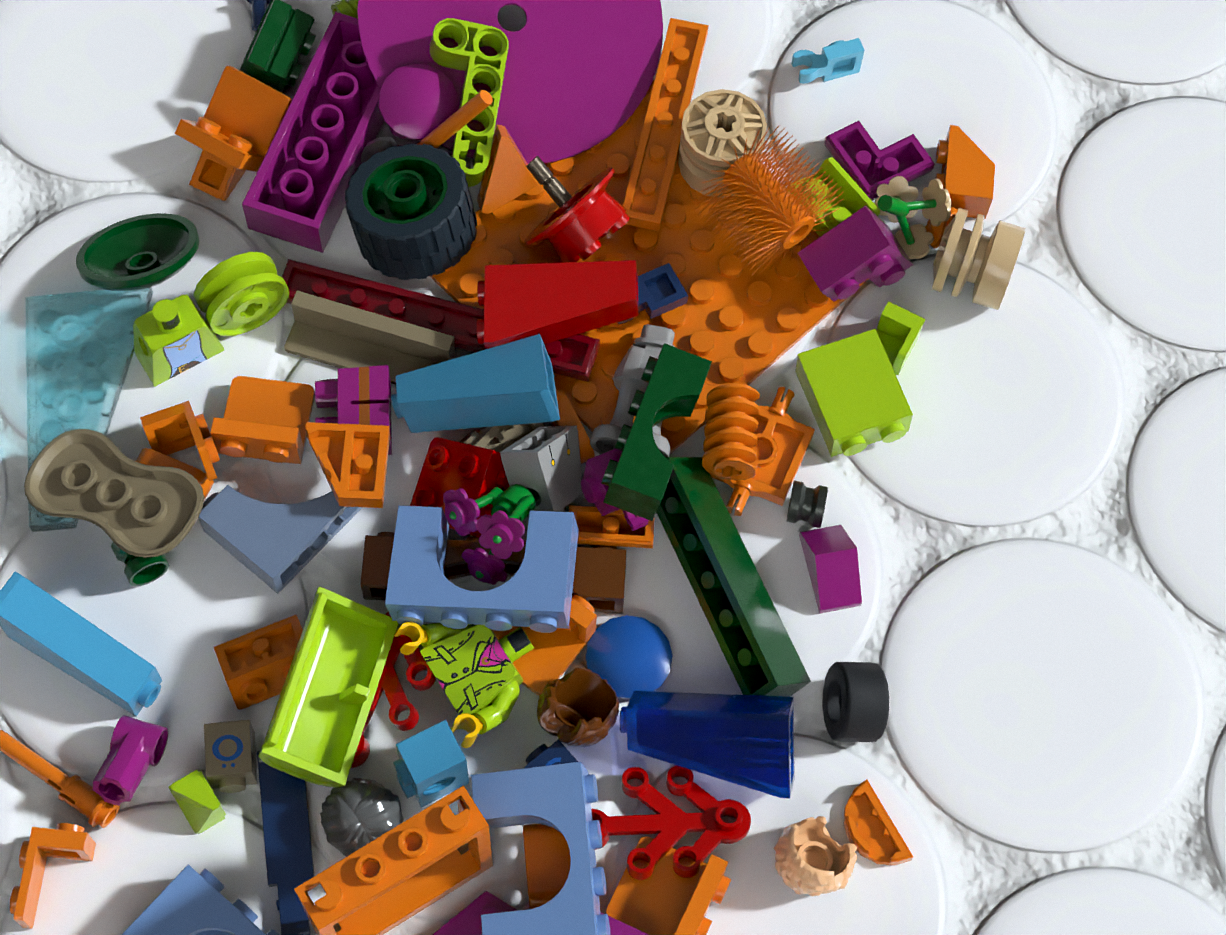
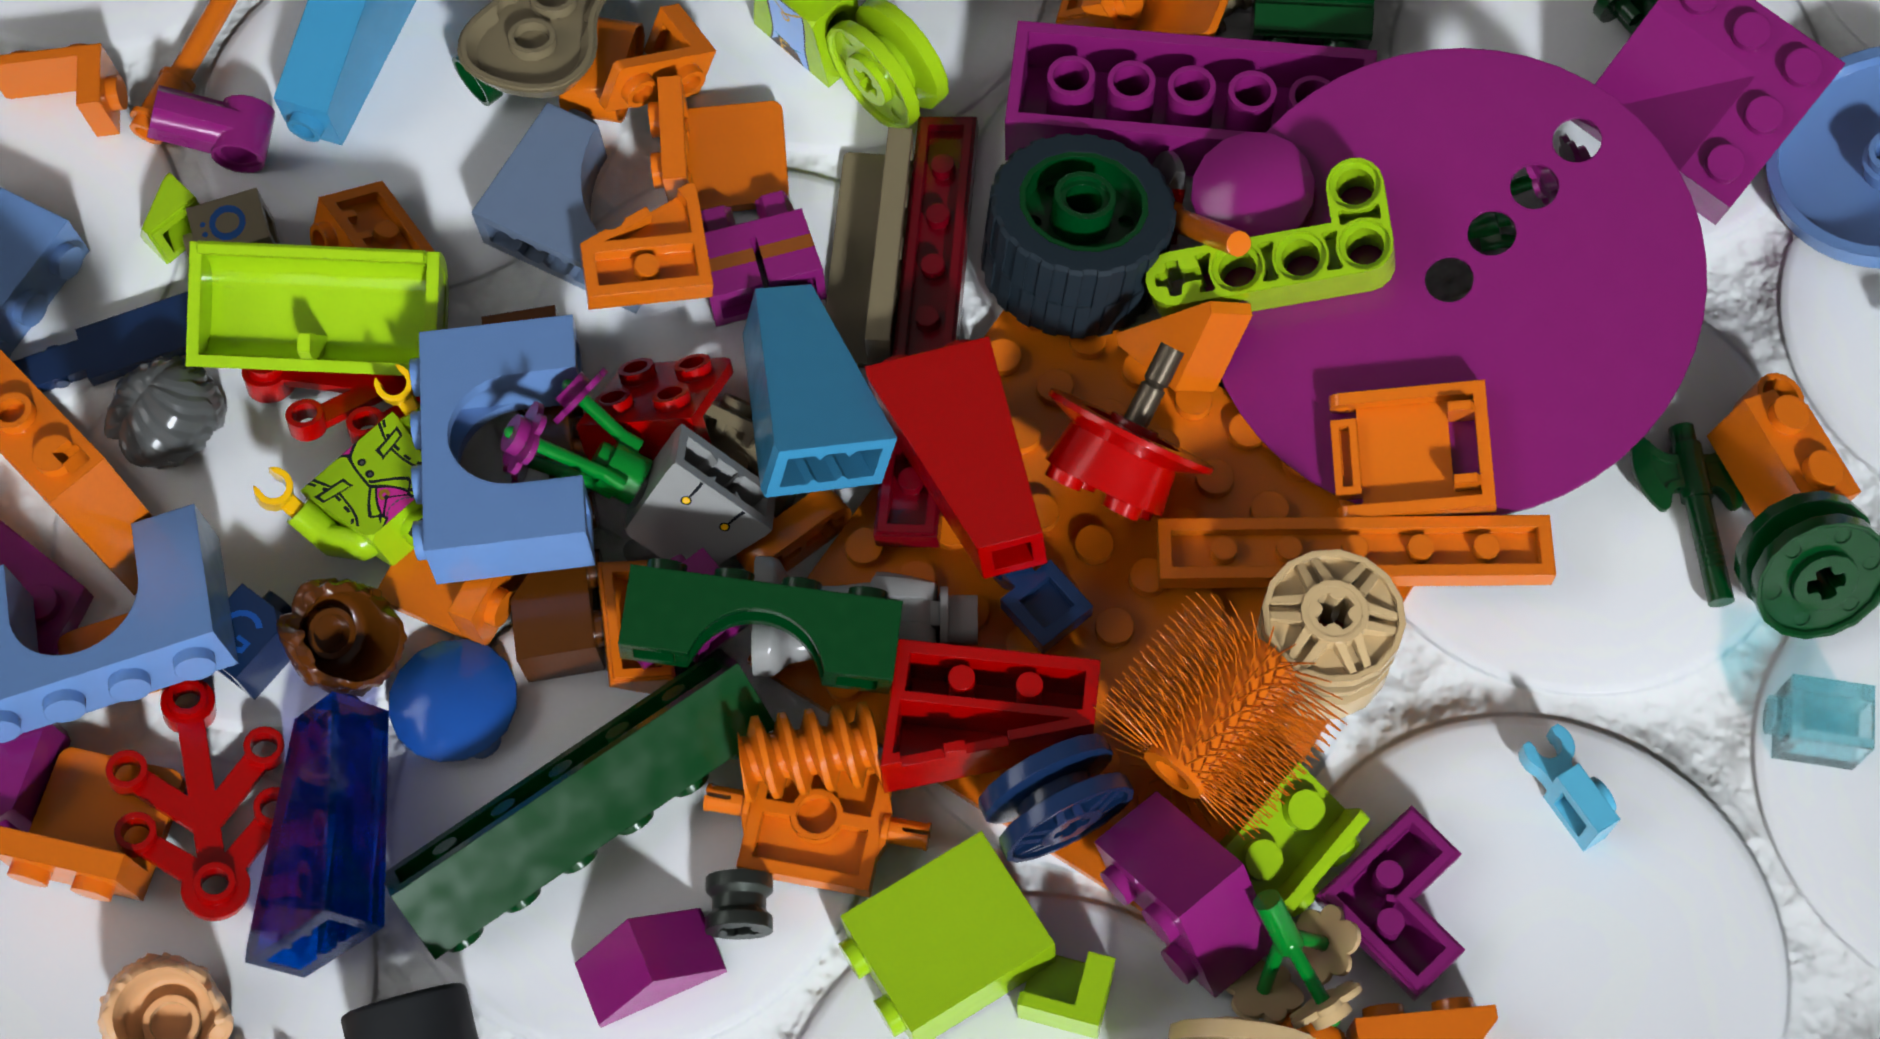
camera: 85 degrees right, 0 degrees up
(431, 764) = (228, 463): dark azure brick -> none
(610, 80) = (1401, 451): none -> orange container
(728, 325) = (980, 710): none -> red wedge
(793, 302) = (1055, 797): none -> dark blue wheel

